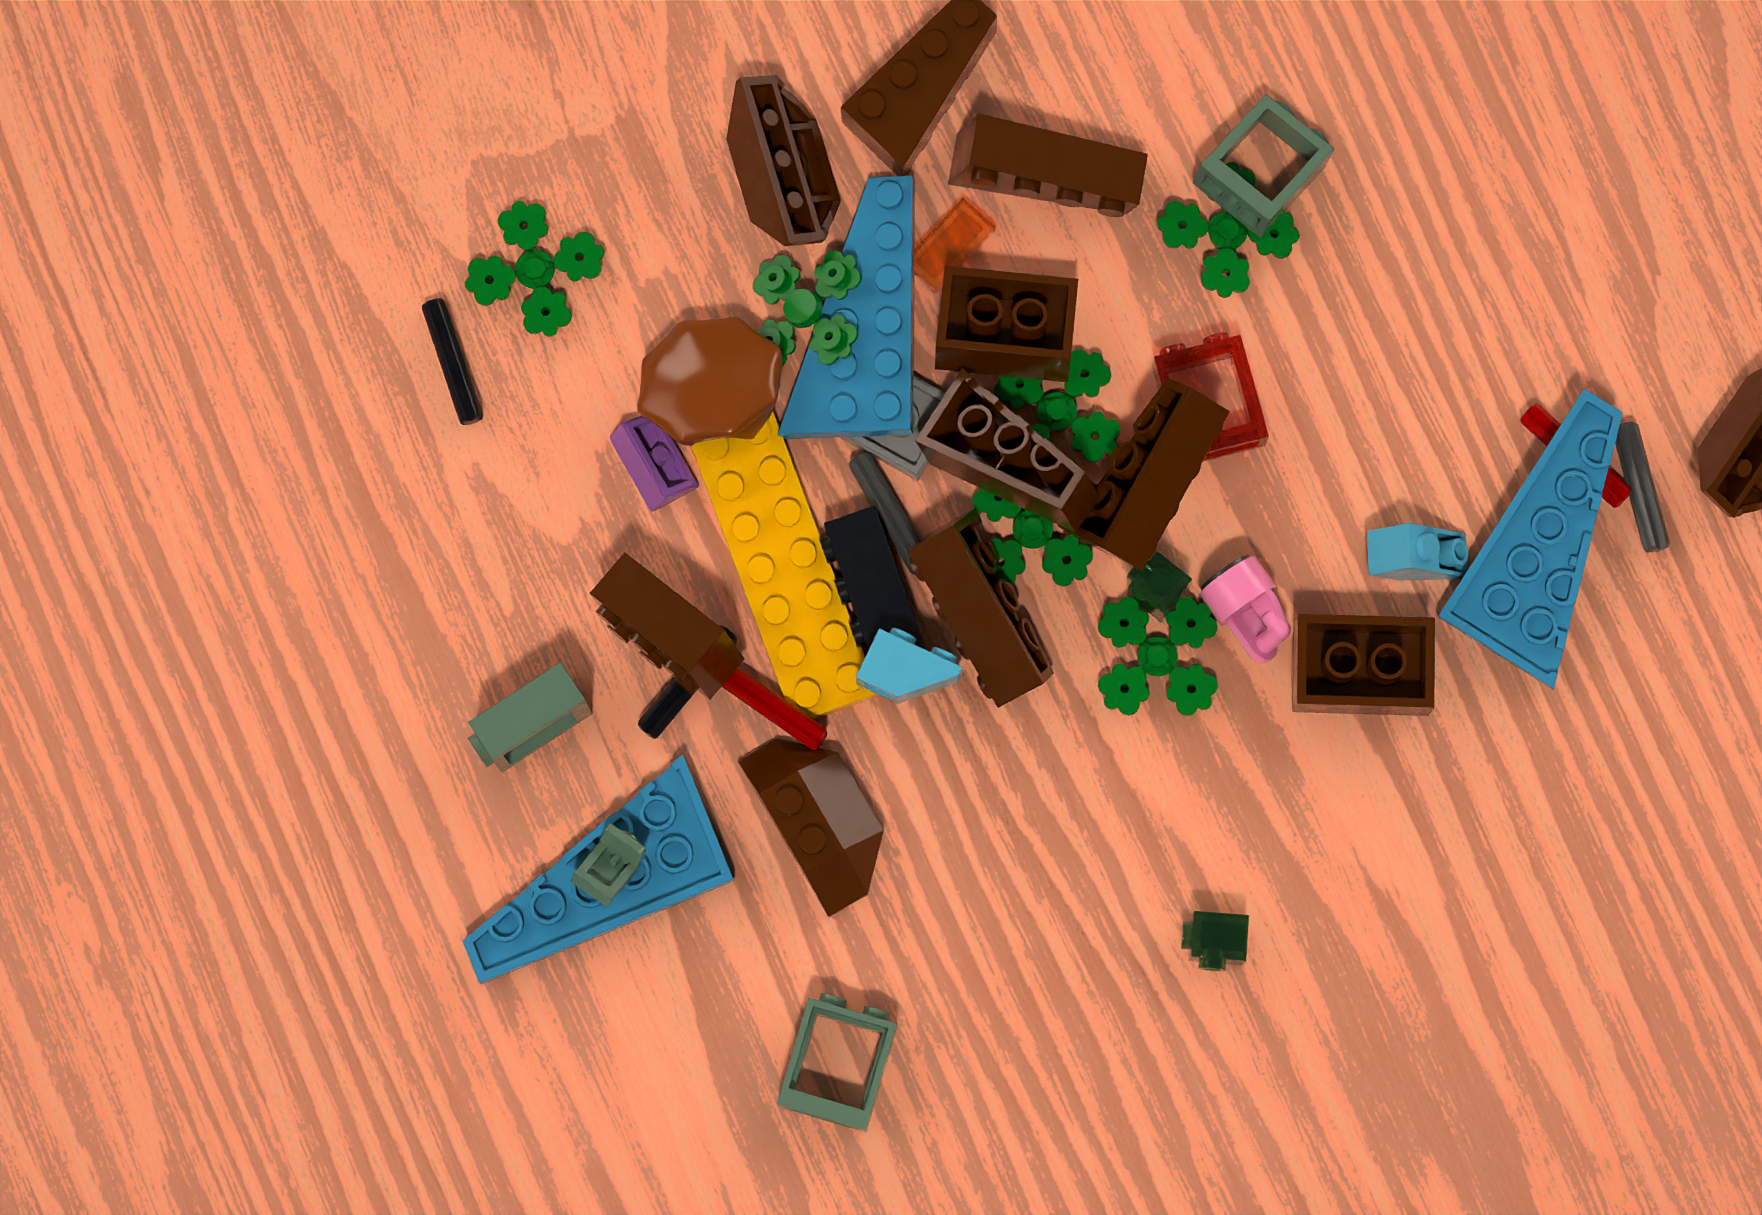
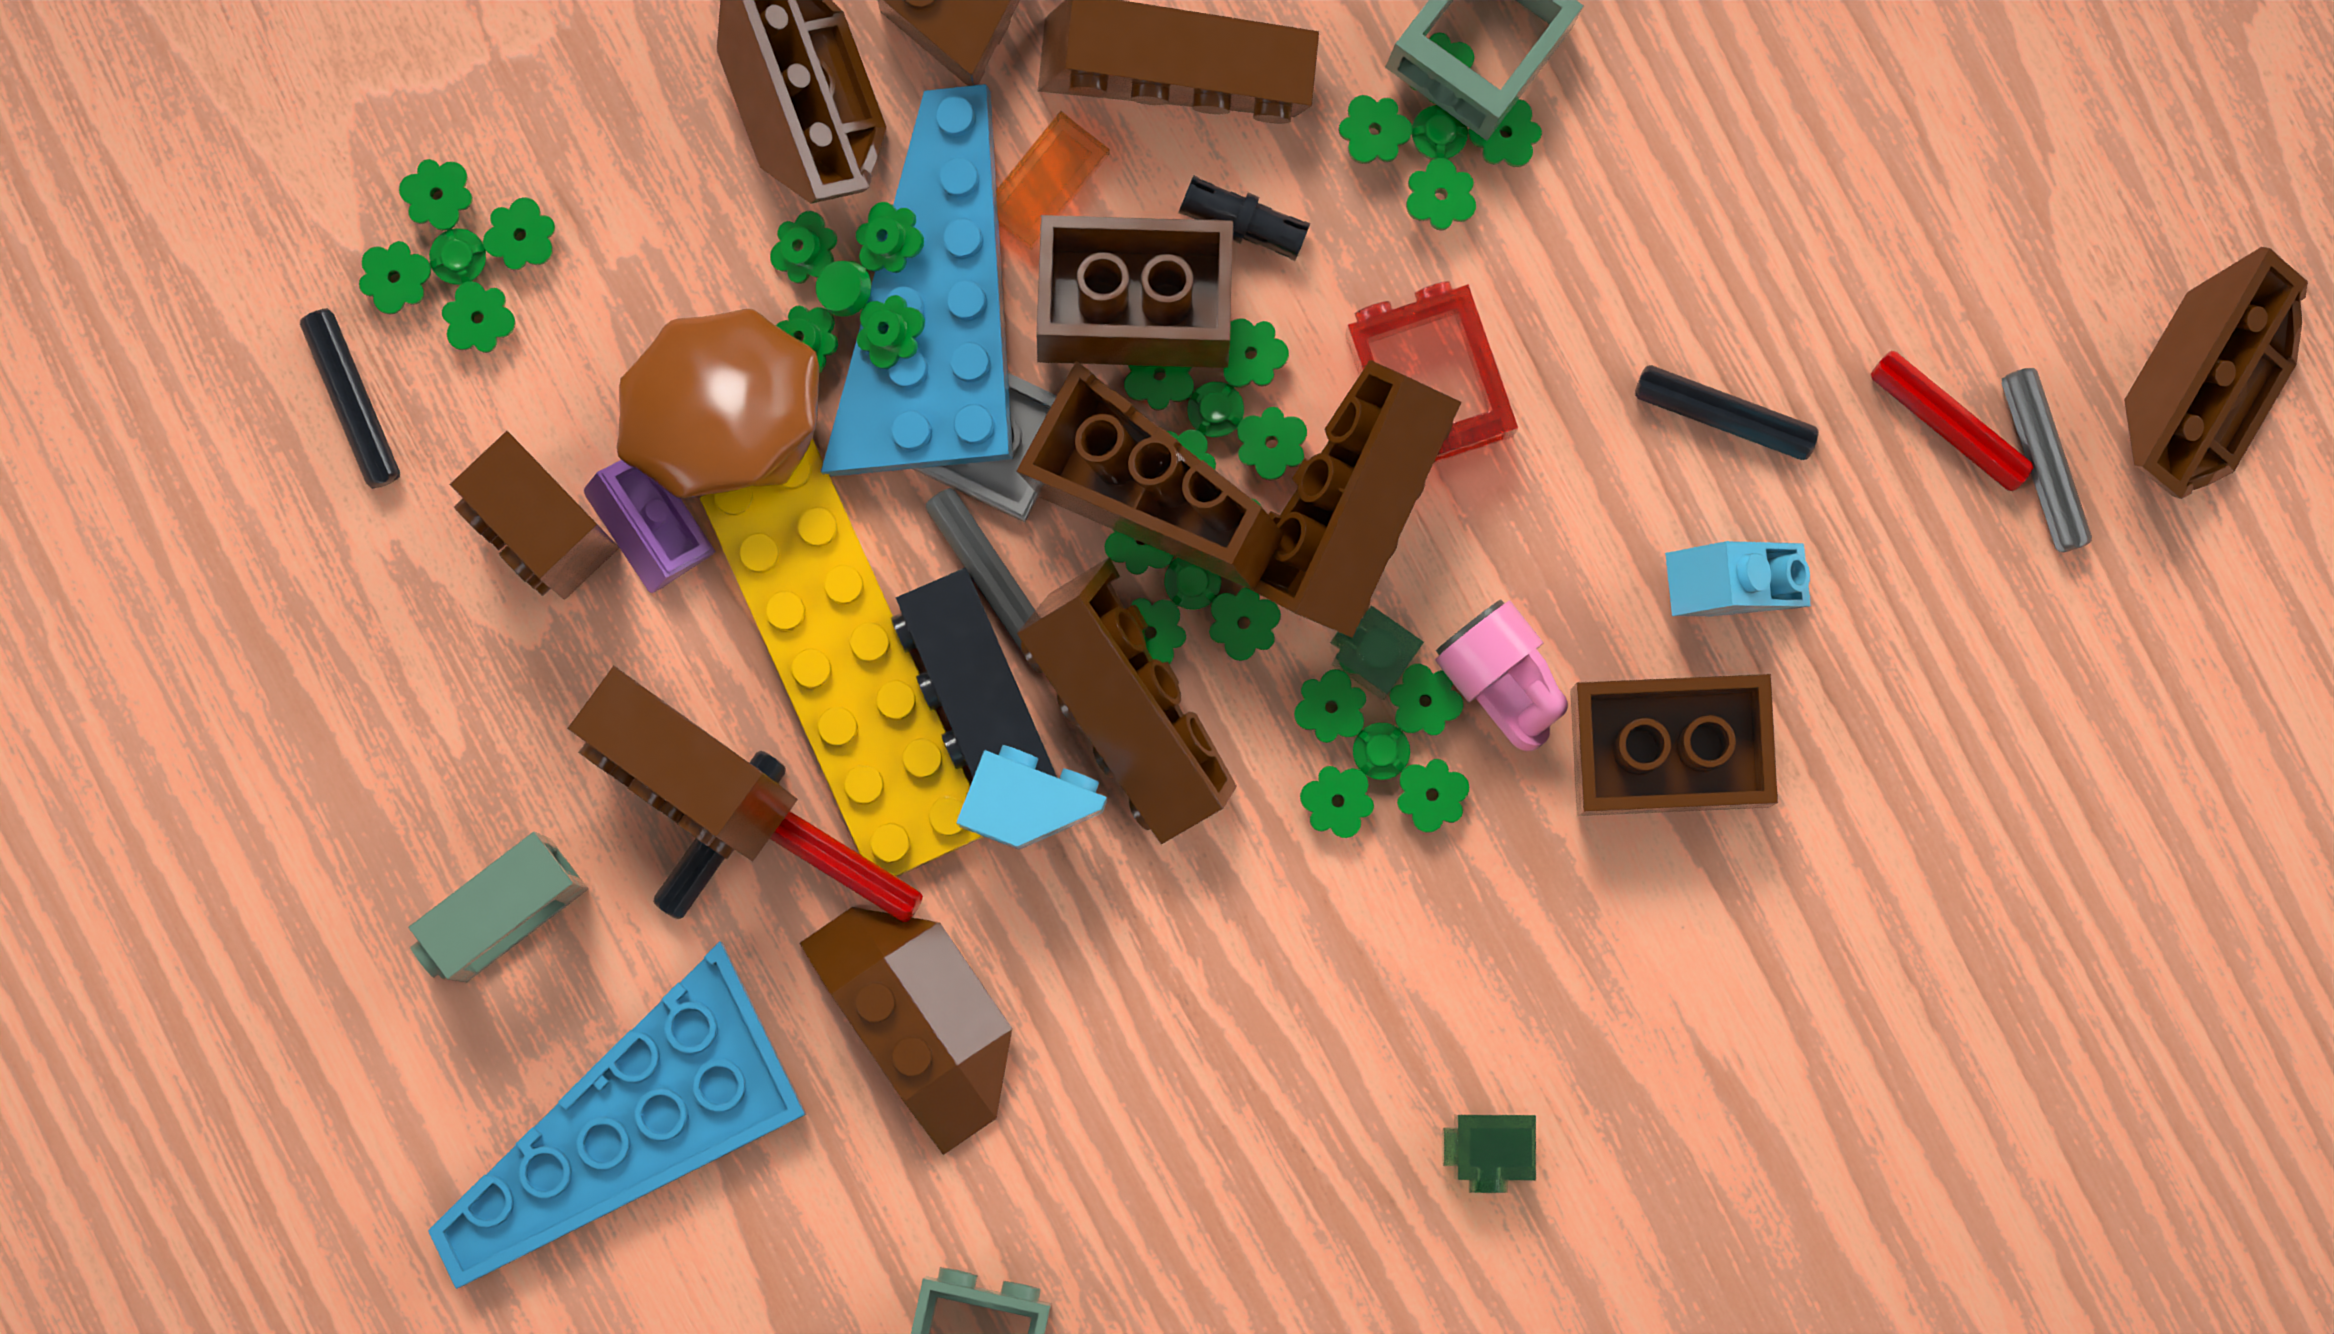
camera: 10 degrees left, 5 degrees up
(576, 448) = (523, 506): none -> reddish brown brick
(610, 865) = (627, 1112): sand green bracket -> none
(1090, 282) = (1250, 219): none -> black pin
(1417, 438) = (1726, 412): none -> black axle
(1531, 566) = (1902, 582): dark azure wing -> none

